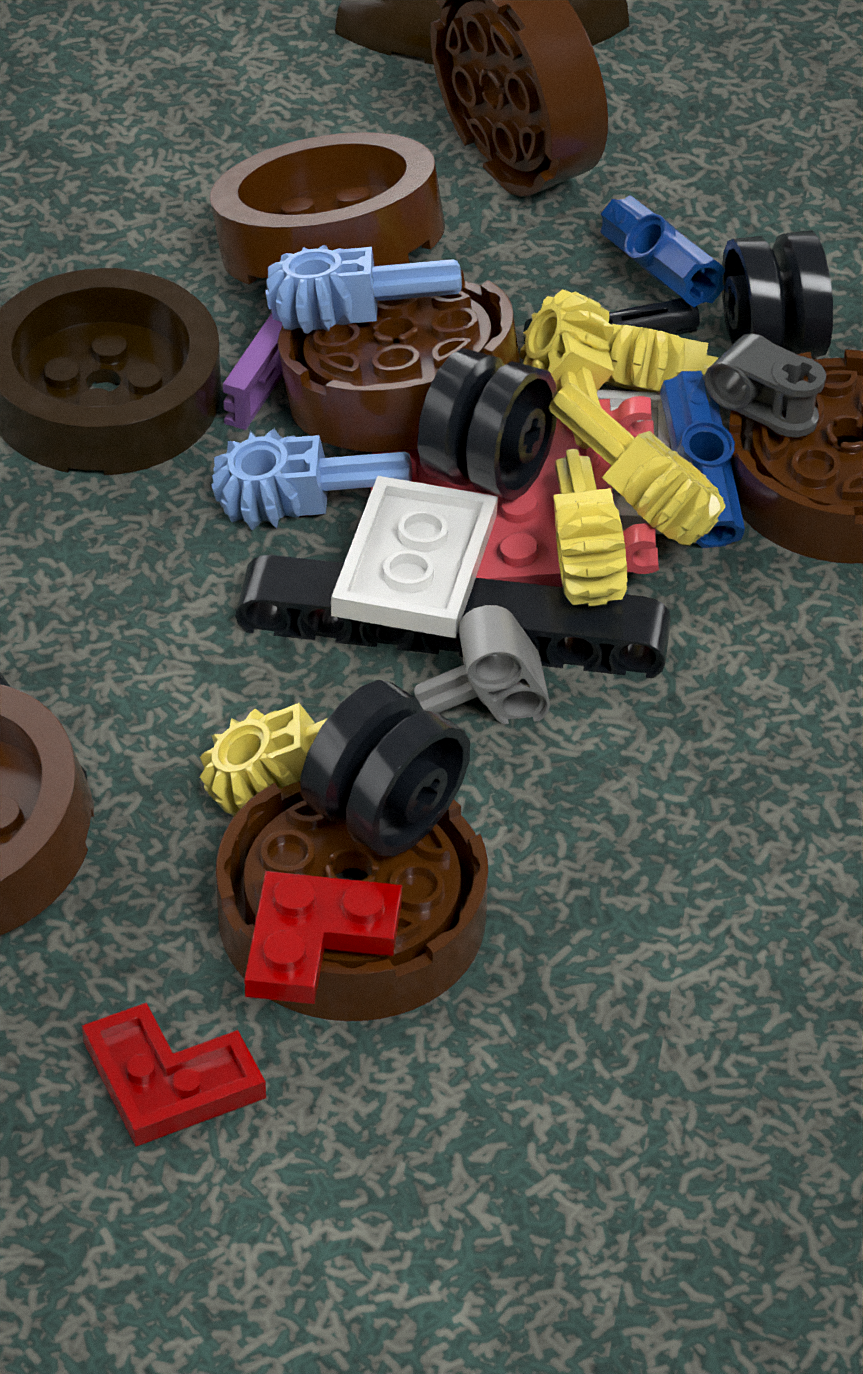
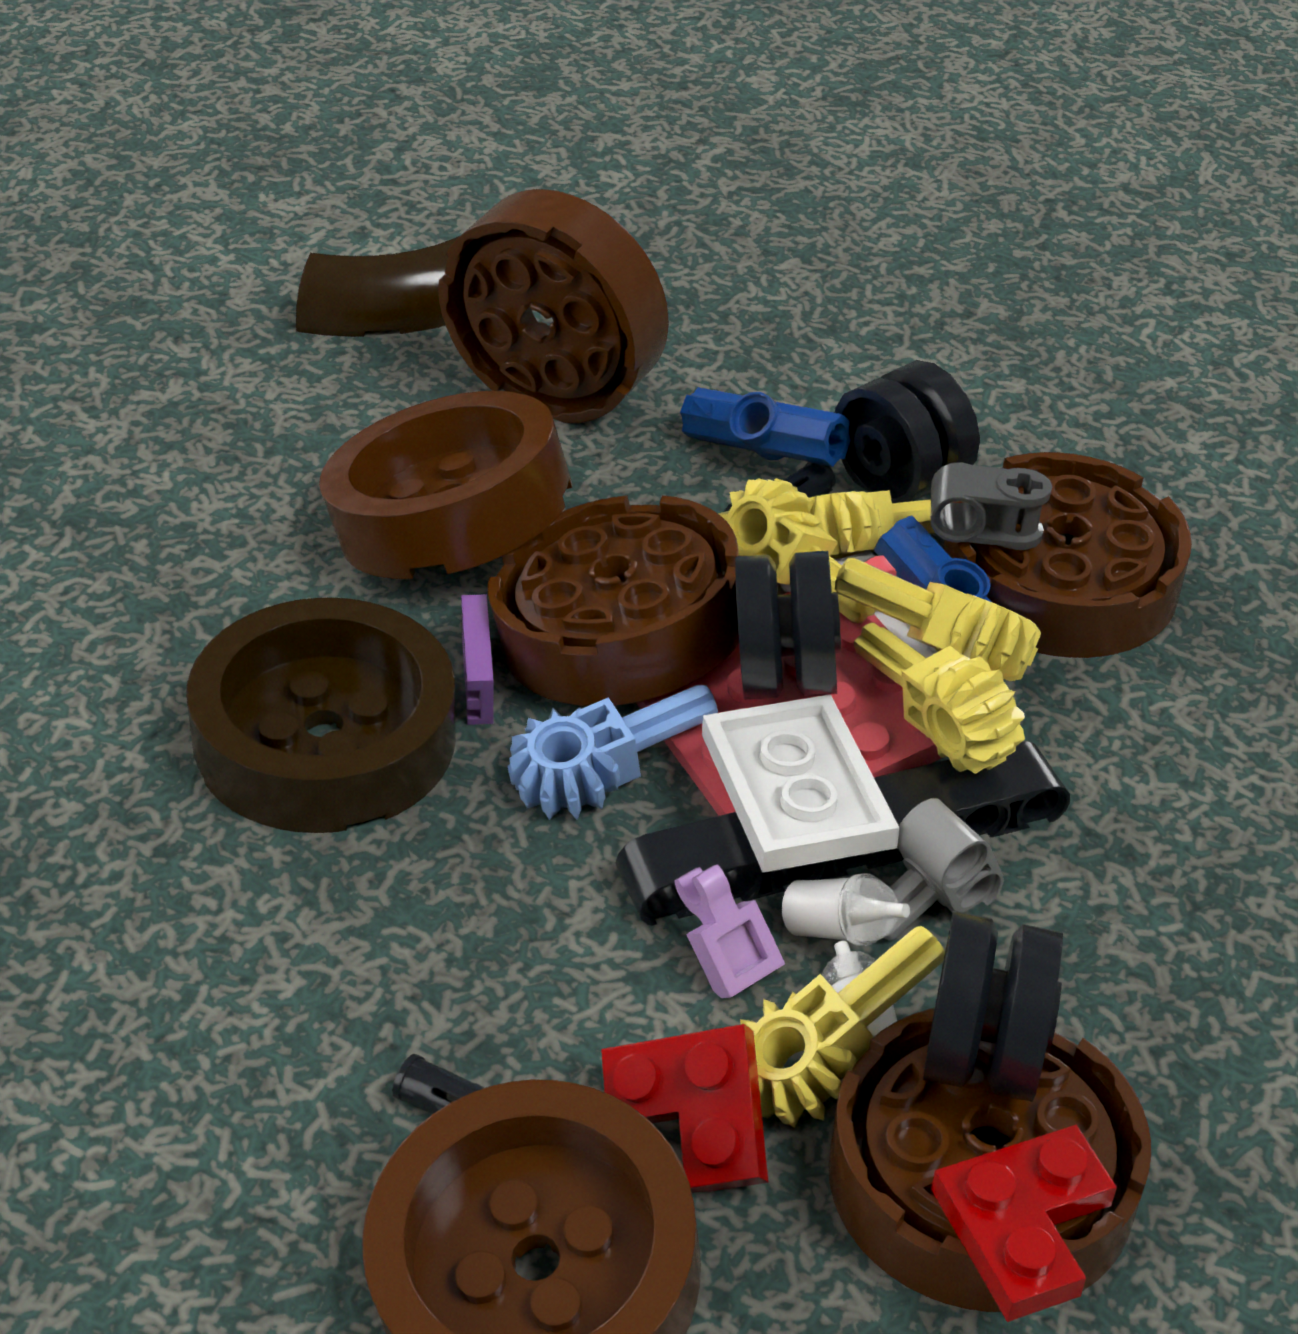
camera: 30 degrees left, 5 degrees down
(170, 760) = (713, 1091): none -> red plate
(285, 665) = (734, 937): none -> lavender plate
(344, 286) = (543, 542): light blue gear -> none
(378, 660) = (842, 909): none -> piece

